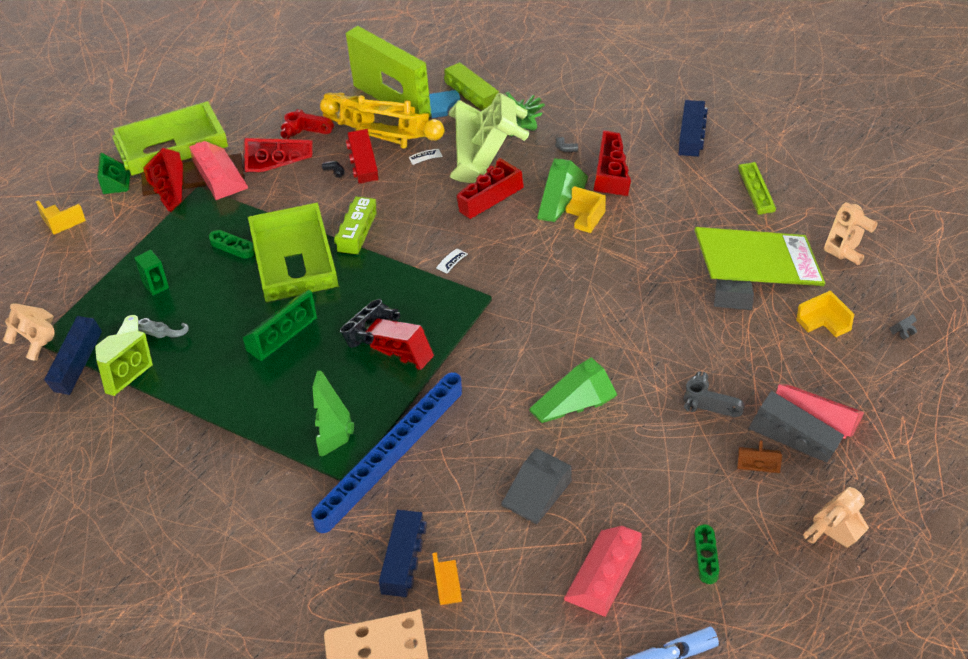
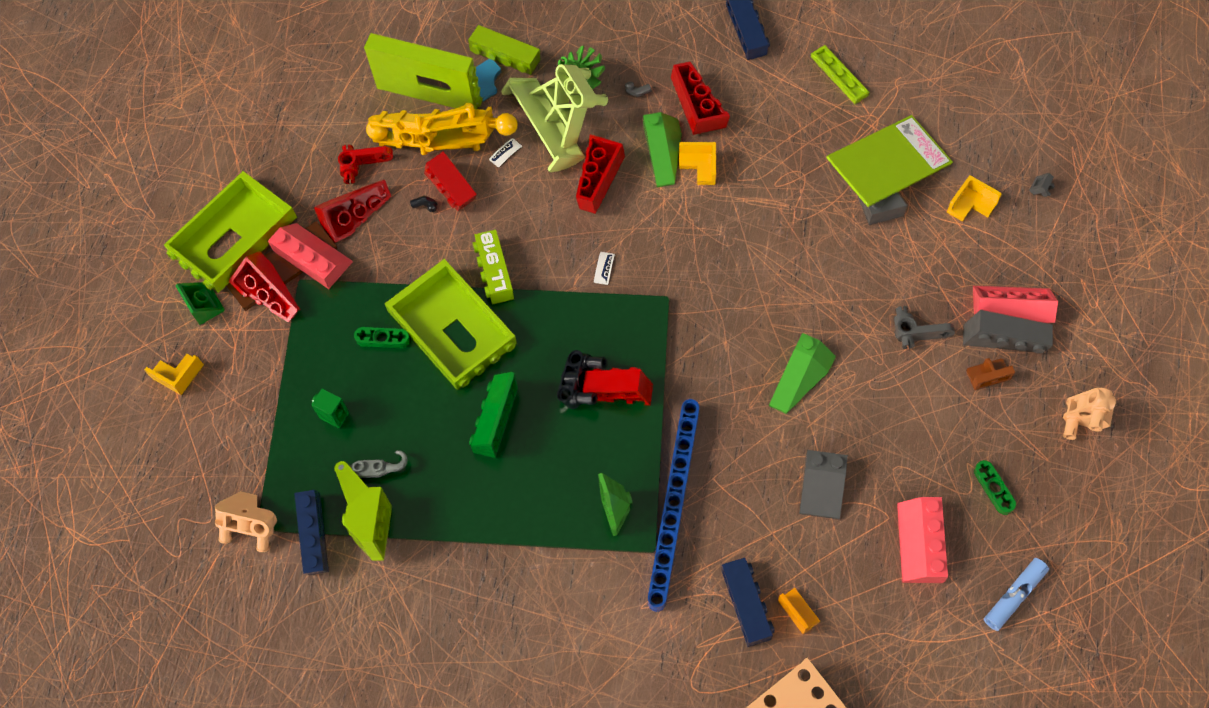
camera: 25 degrees left, 20 degrees up
(839, 242) = (954, 93): light nougat piece -> none

